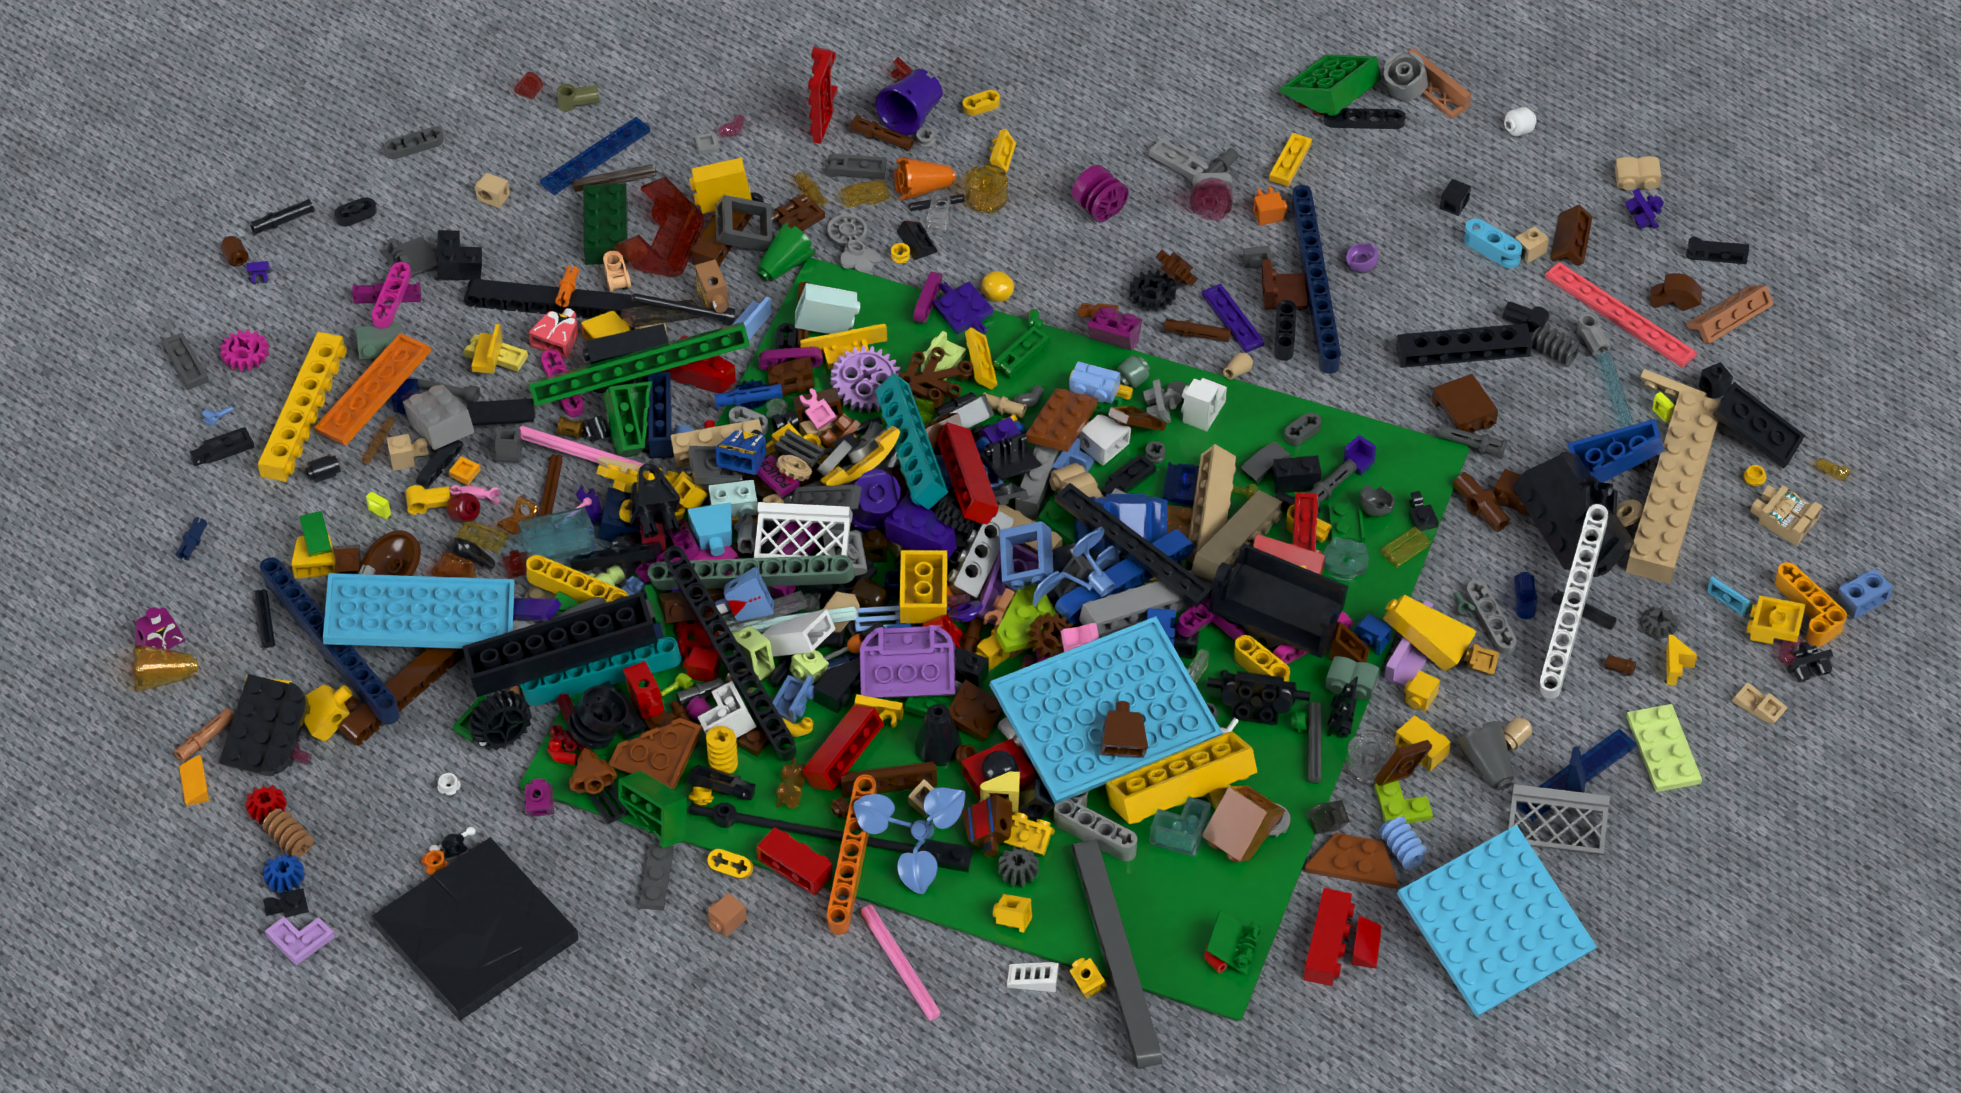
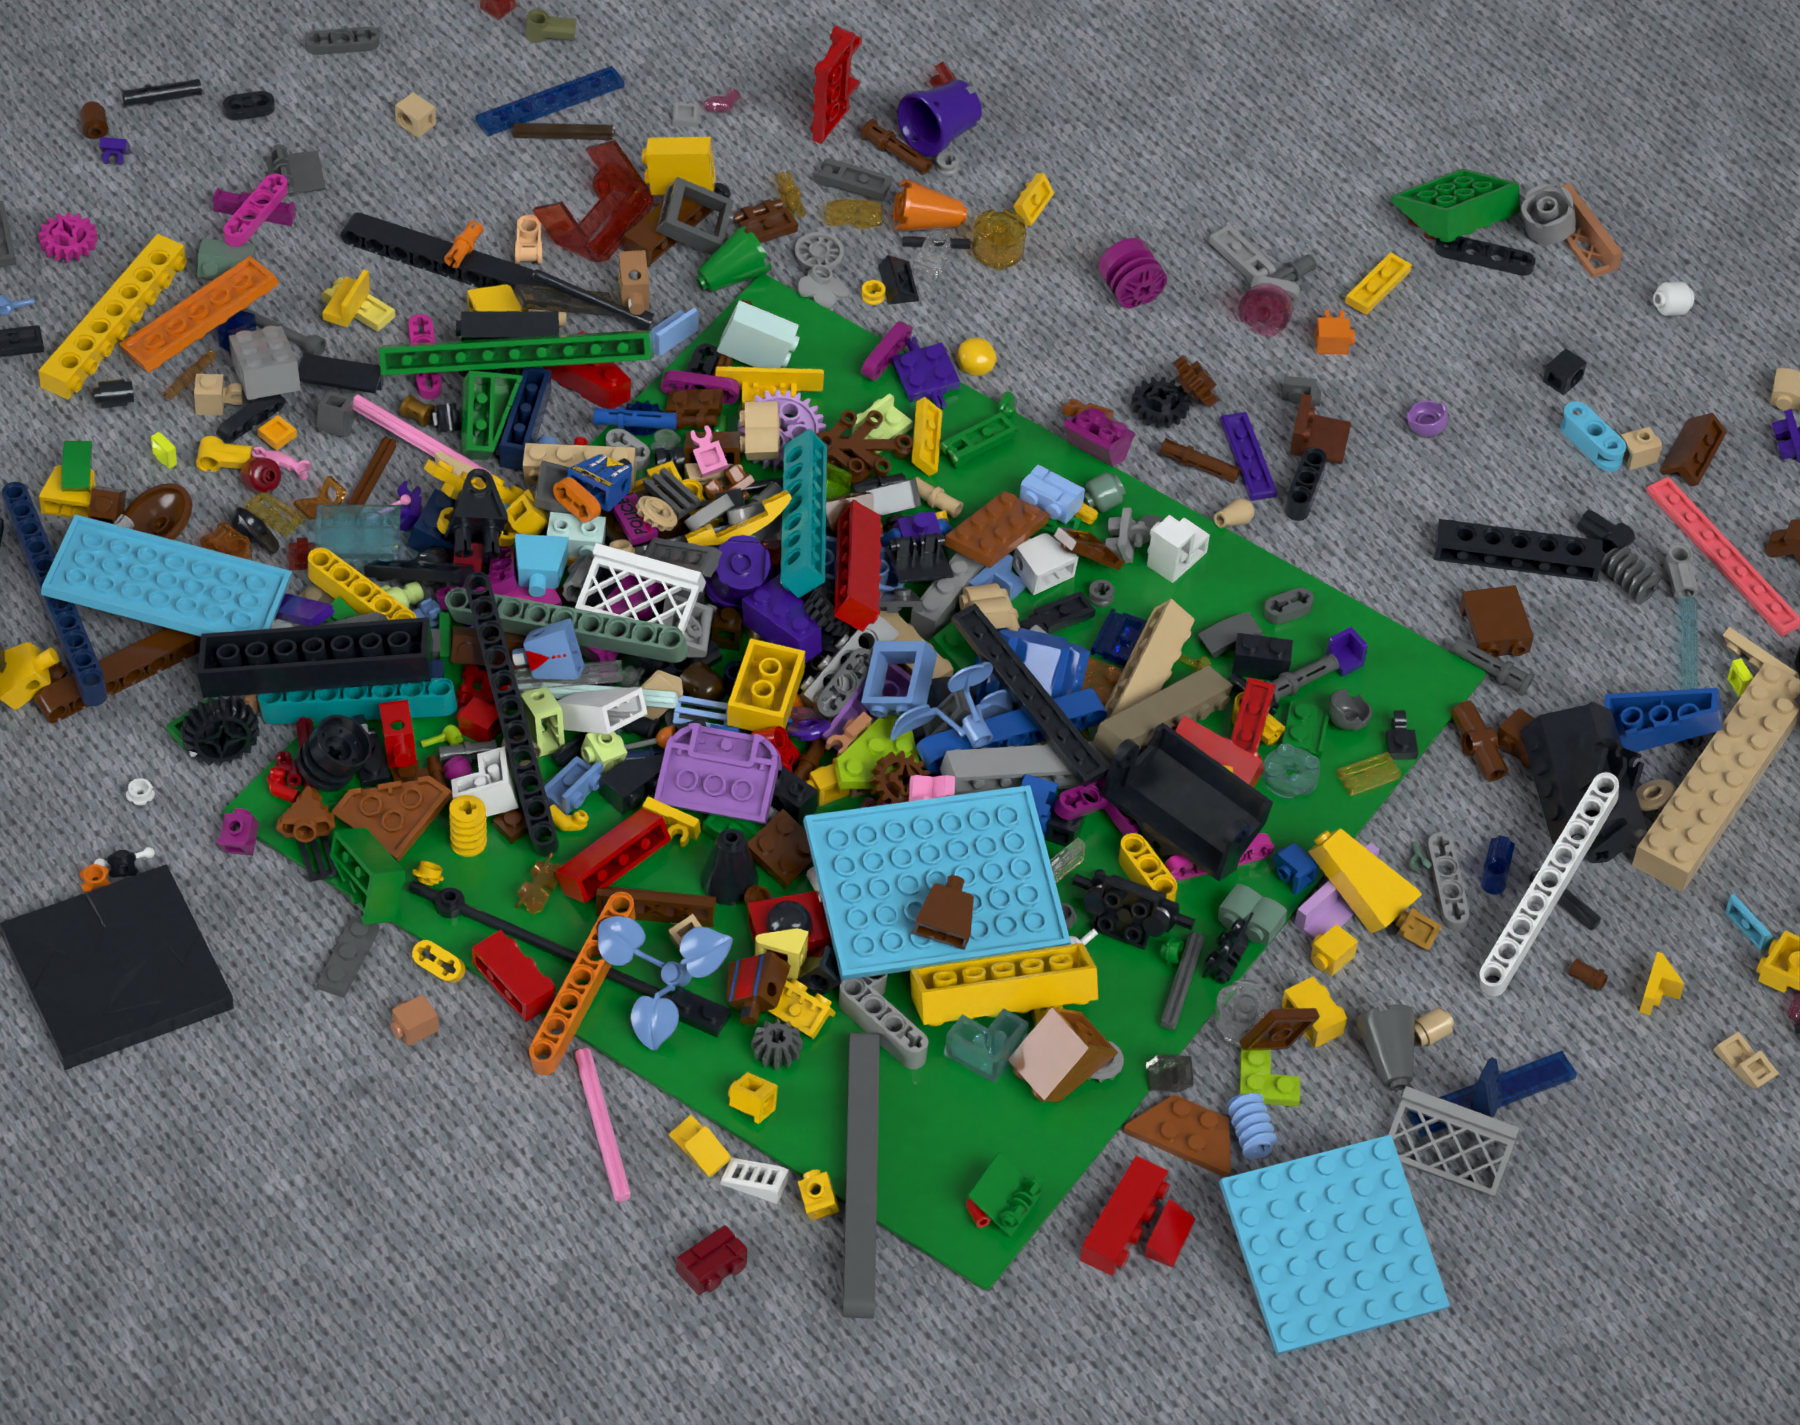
camera: 10 degrees right, 0 degrees up
(457, 261) = (346, 188): black brick -> none
(555, 332) = (435, 296): coral torso -> none
(604, 220) = (534, 176): dark green brick -> none
(722, 782) = (458, 863): black hinge -> none
(728, 471) = (576, 499): none -> orange beam
(840, 807) = (586, 924): reddish brown plate -> none
(853, 383) = (761, 430): none -> tan brick
(981, 102) = (1027, 136): yellow beam -> none
(982, 960) = (700, 1145): none -> yellow slope
(985, 579) = (825, 694): none -> dark grey beam
(1021, 1048) = (712, 1260): none -> dark red brick
(1030, 399) = (970, 497): dark grey arm -> none
(1316, 279) = (1362, 432): dark blue beam -> none
(1348, 645) = (1258, 874): reddish brown slope -> none
(1650, 625) = (1660, 943): dark grey gear -> none
(1664, 748) = (1610, 1087): yellowish green plate -> none

